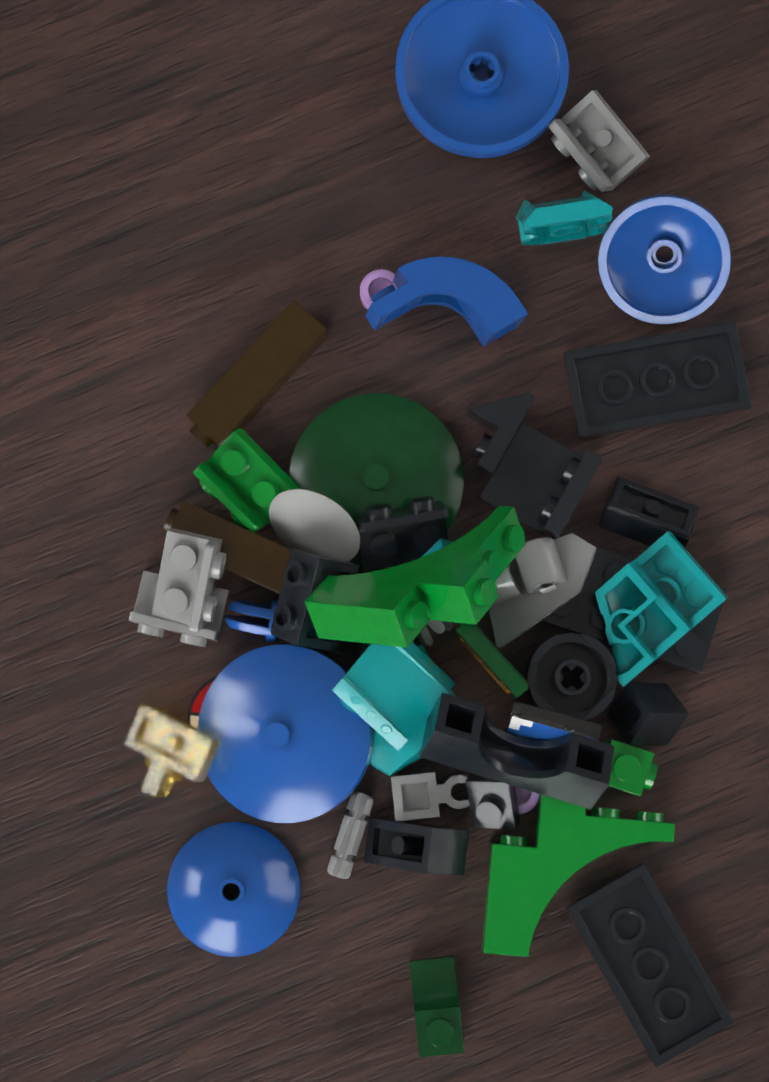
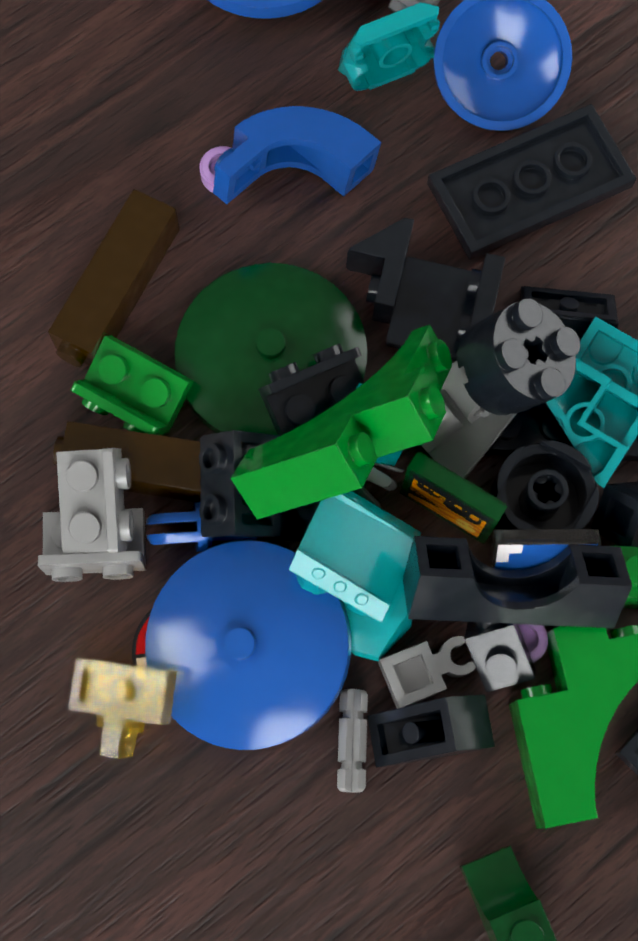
camera: 20 degrees left, 10 degrees down
(266, 882) = (277, 849): blue dish -> none
(314, 524) = (216, 401): light grey sticker -> none
(580, 559) = (518, 358): none -> black brick

